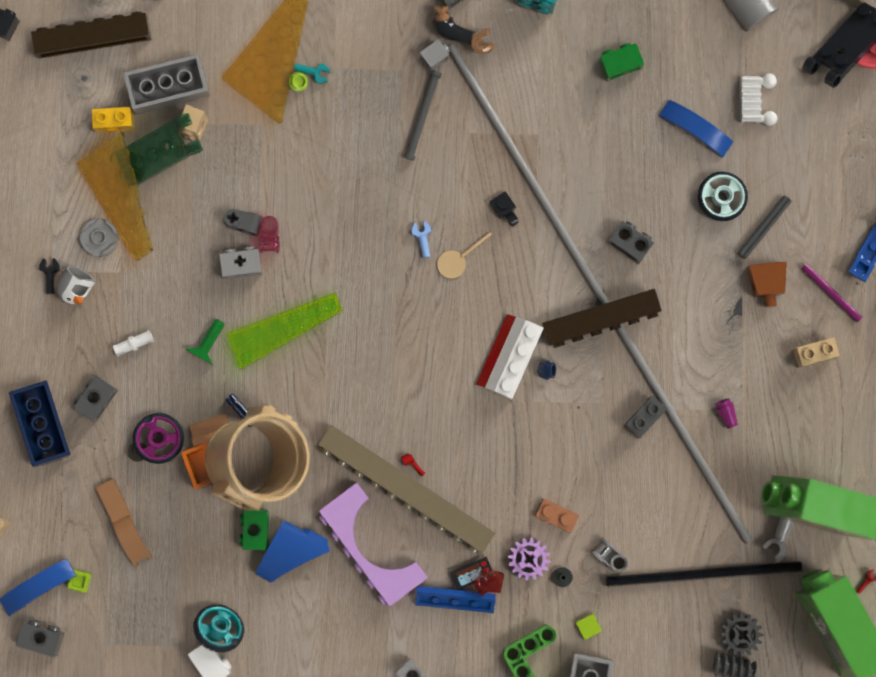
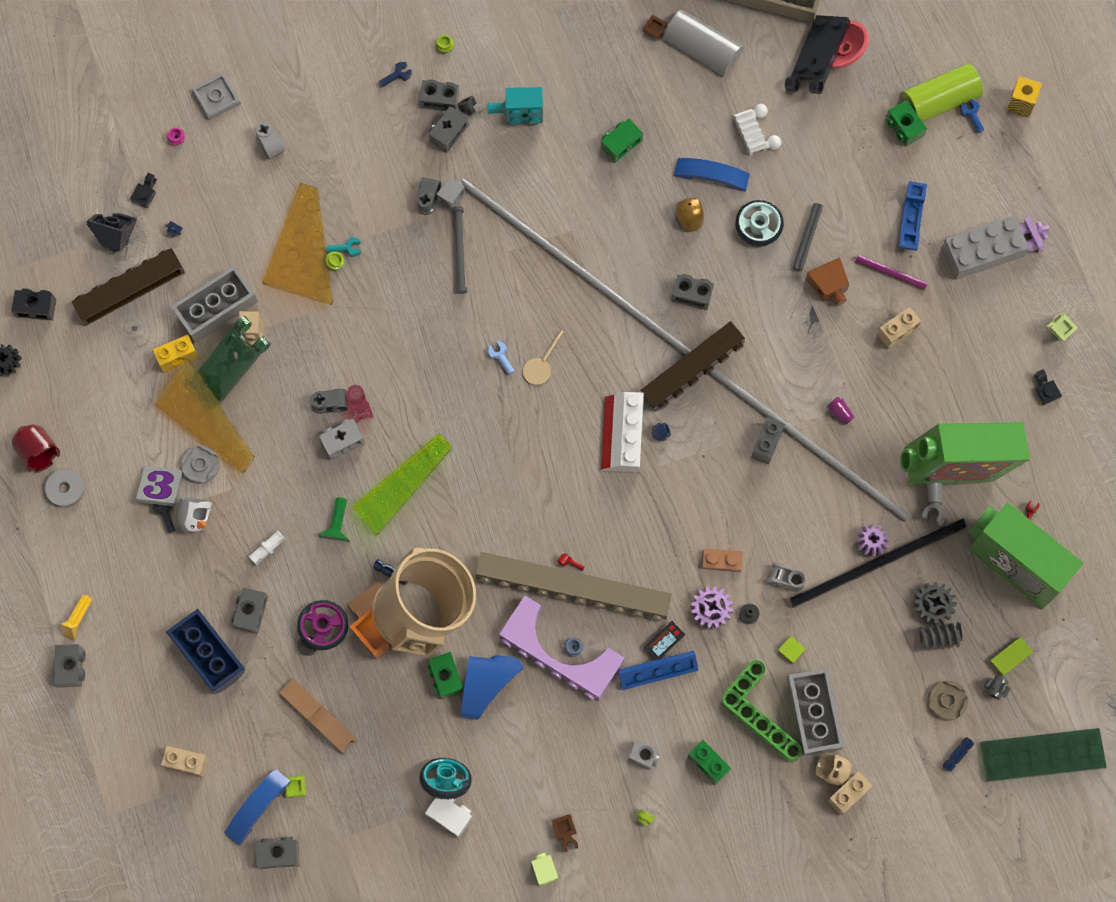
camera: 15 degrees left, 10 degrees down
(53, 245) = (159, 486): none -> light grey tile
(390, 546) = (568, 646): none -> sand blue plate
(413, 45) = (428, 195): none -> dark grey piece
(449, 29) = (454, 166): piece -> none
(489, 582) = (683, 642): clear red bracket -> none
(504, 207) = (566, 303): black plate -> none
(659, 166) = (690, 214): none -> pearl gold helmet
(701, 555) = (867, 544): none -> lavender gear

